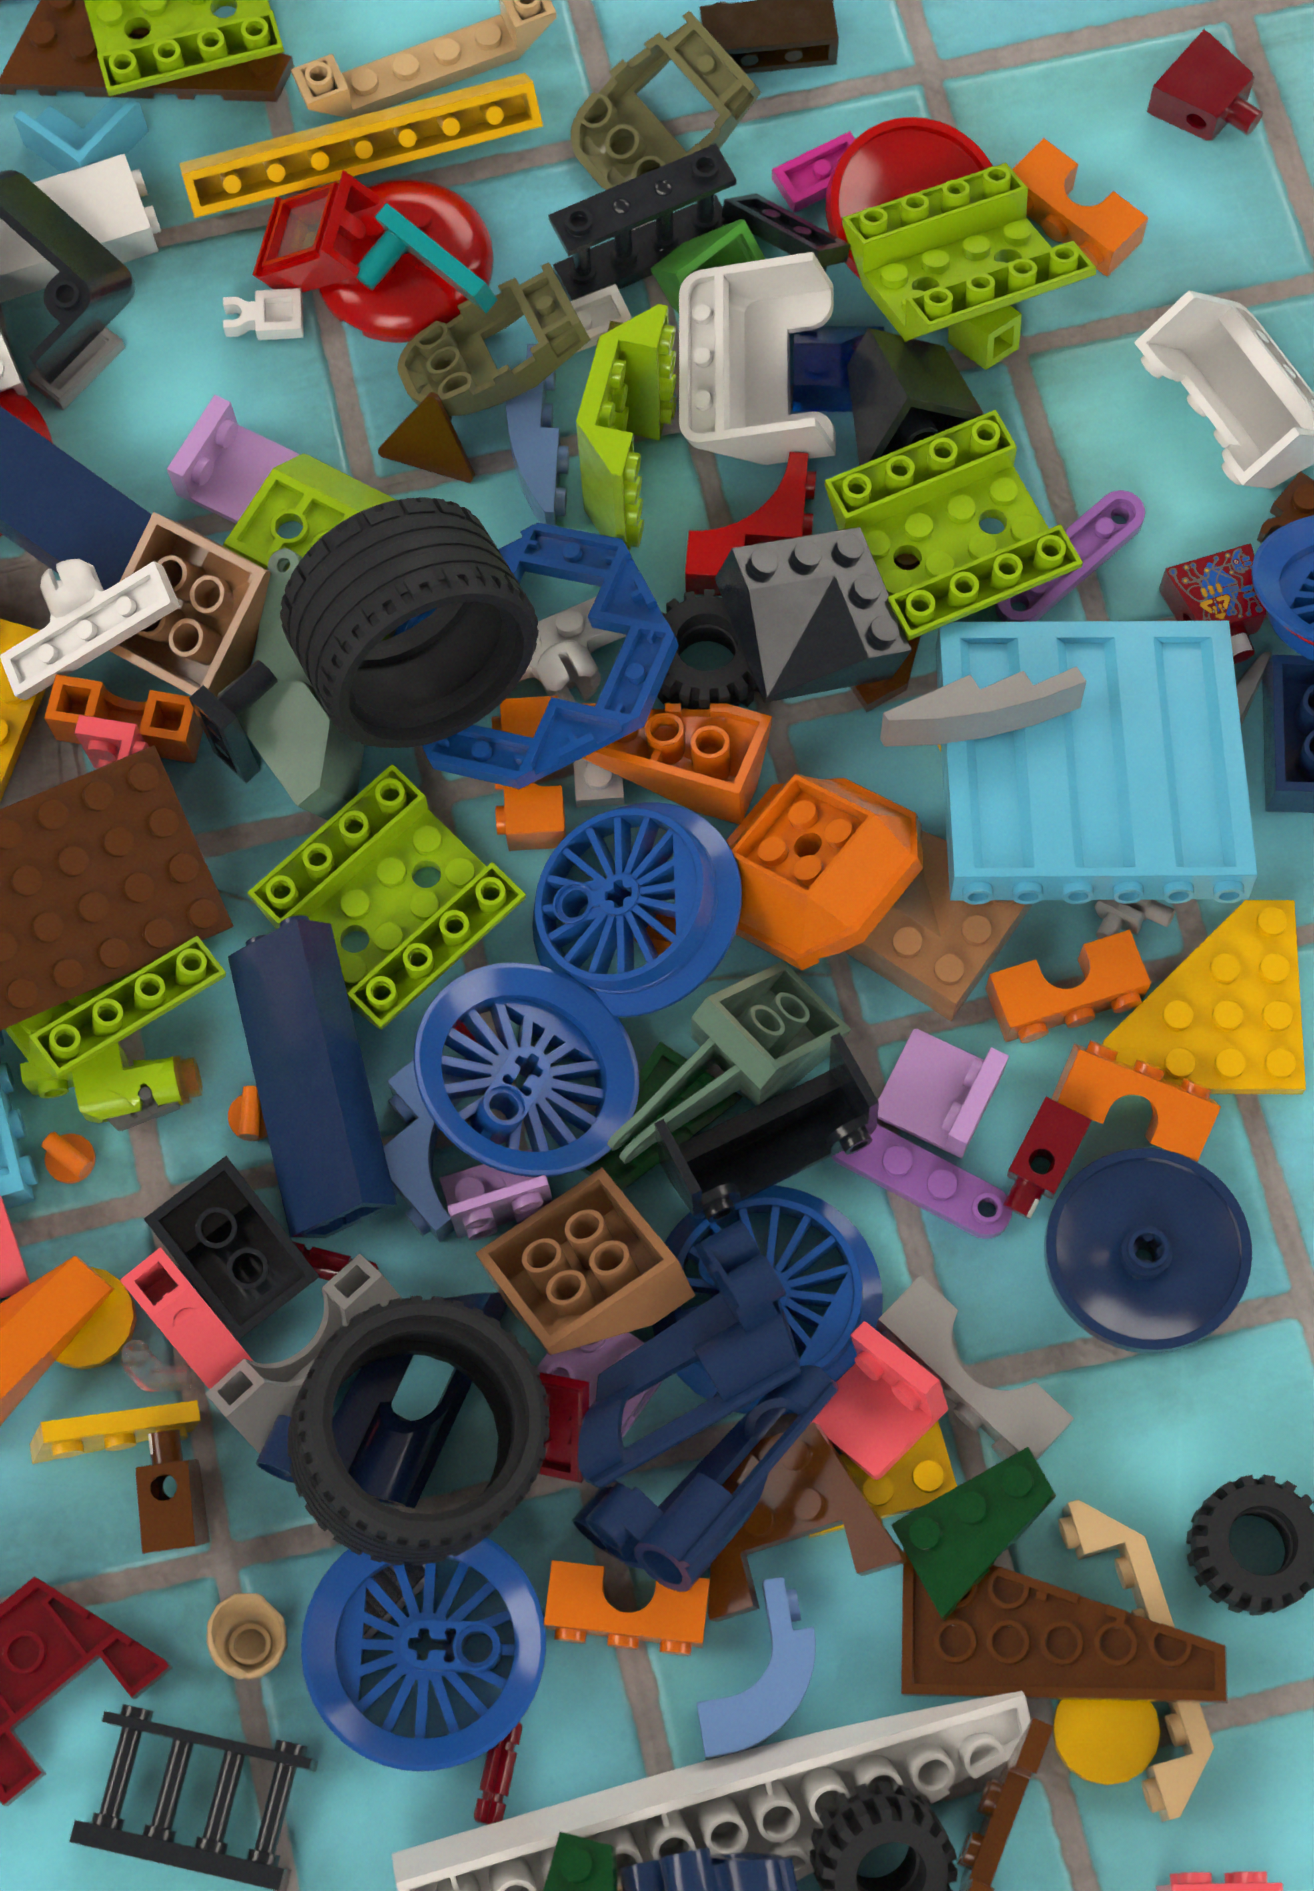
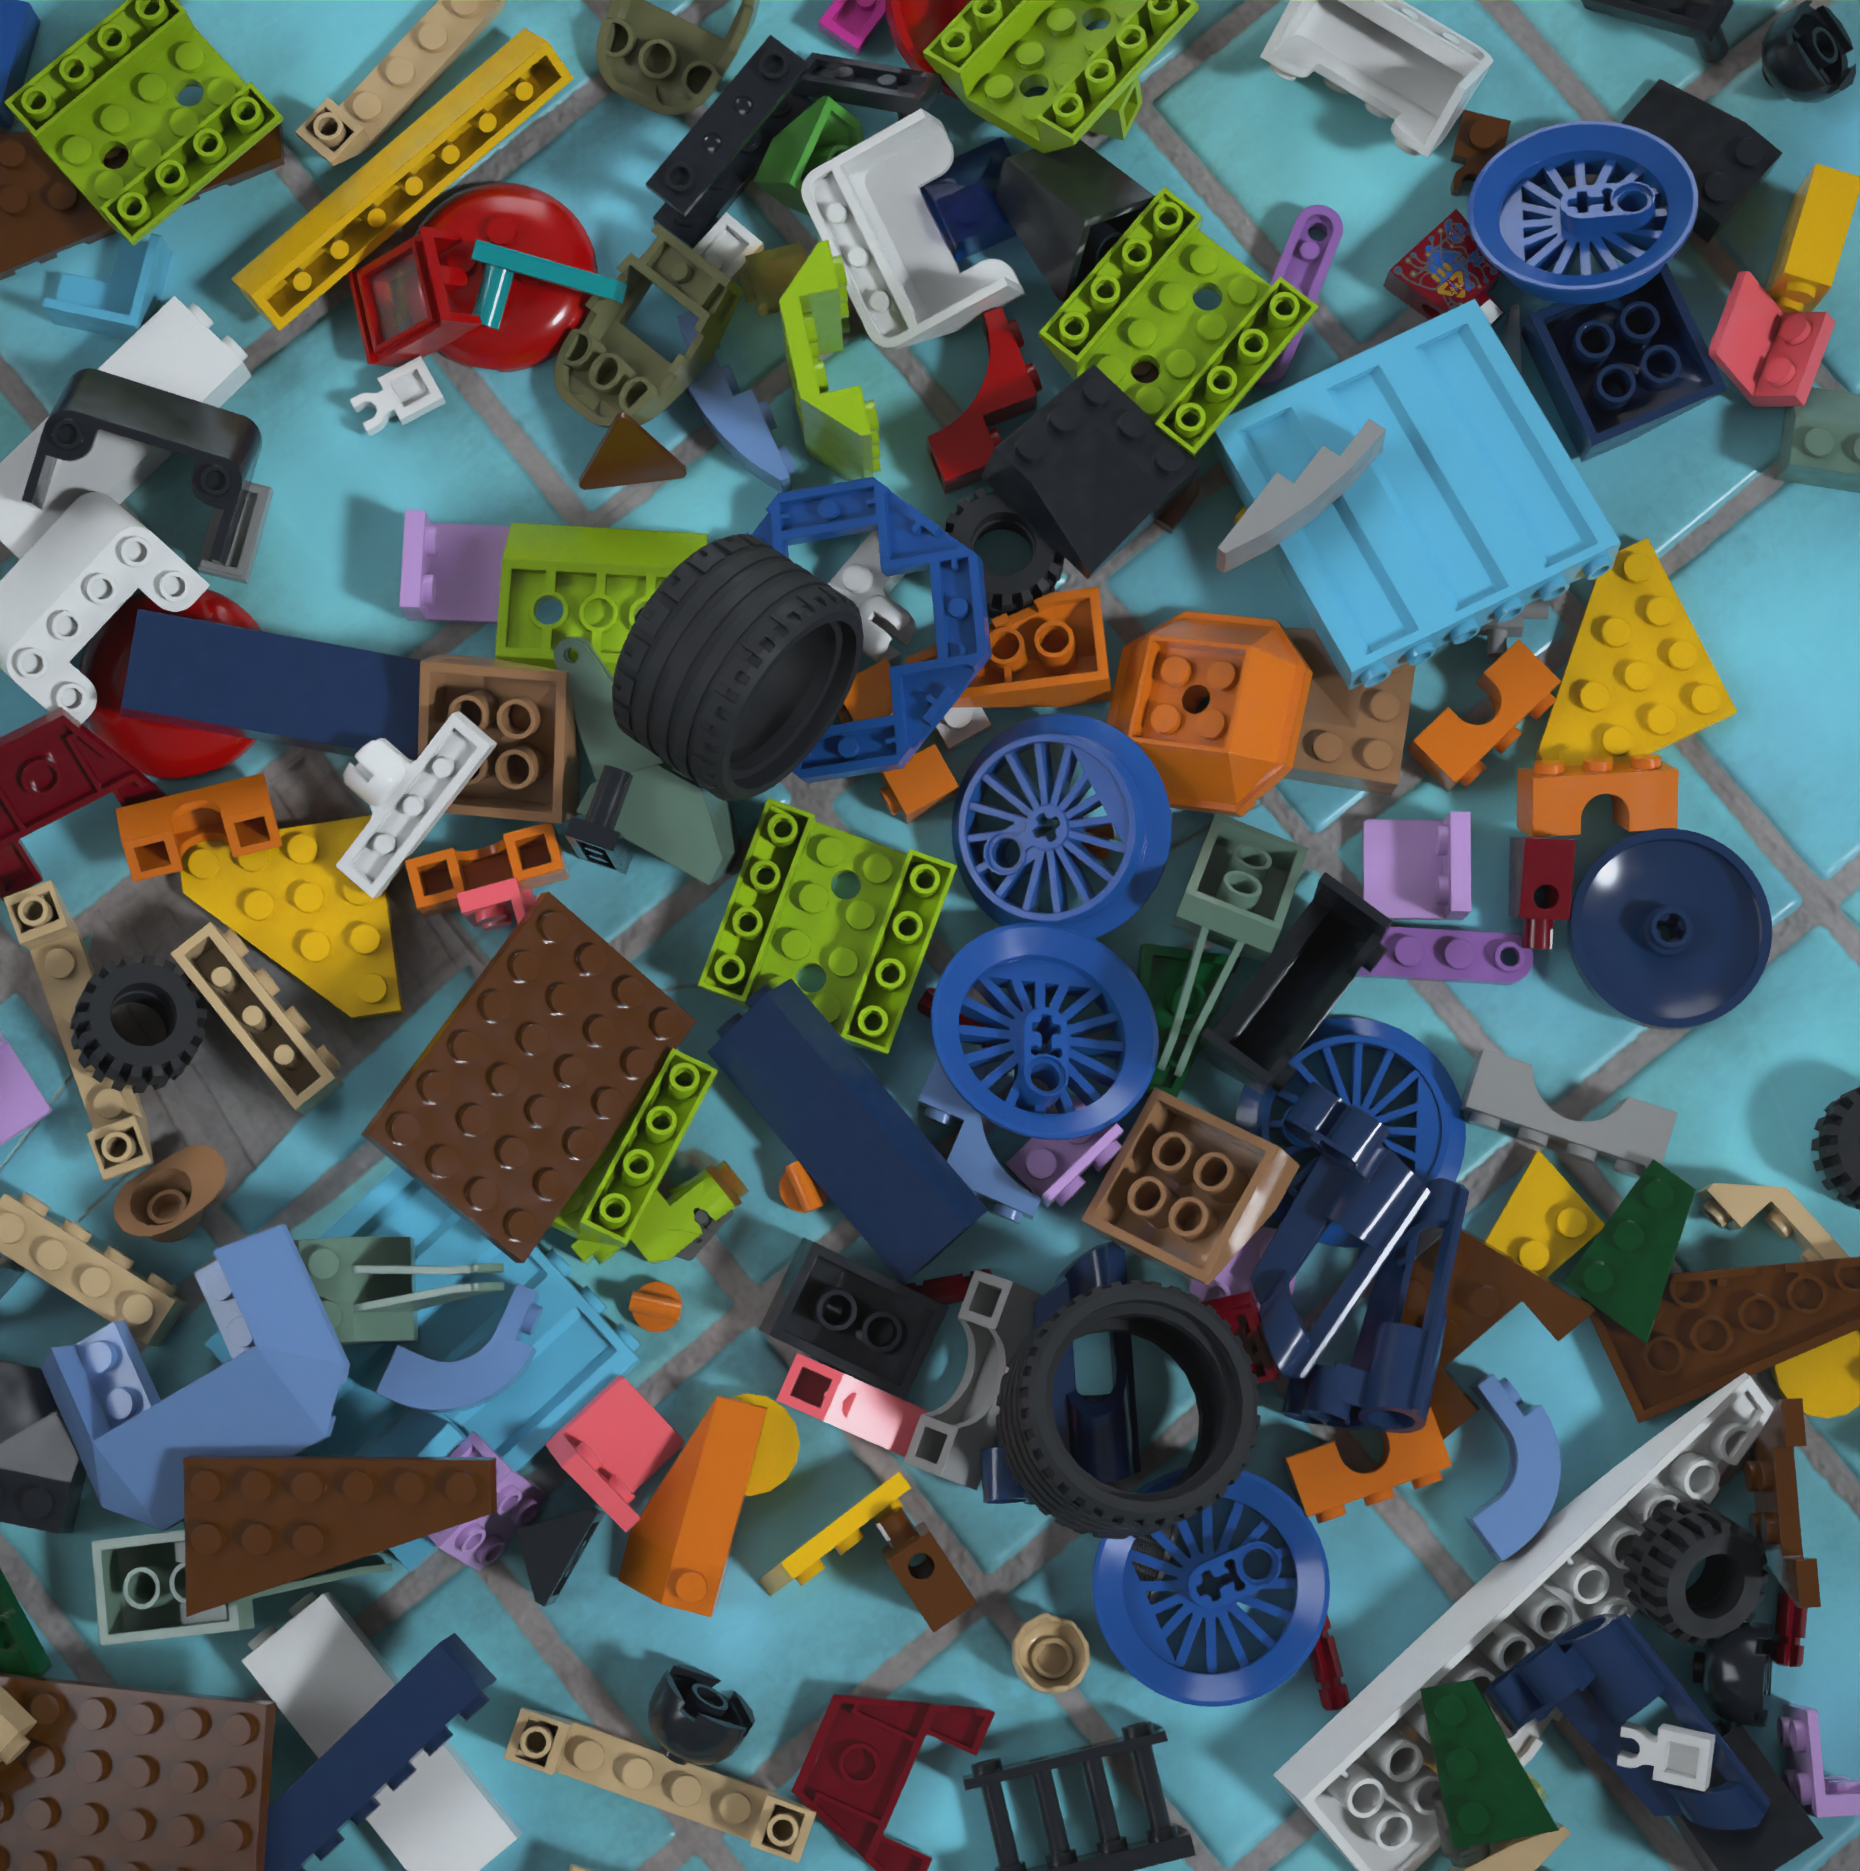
camera: 30 degrees left, 10 degrees up
(149, 1372) = (835, 1465): clear arm -> none
(881, 1404) = (1507, 1180): coral bracket -> none

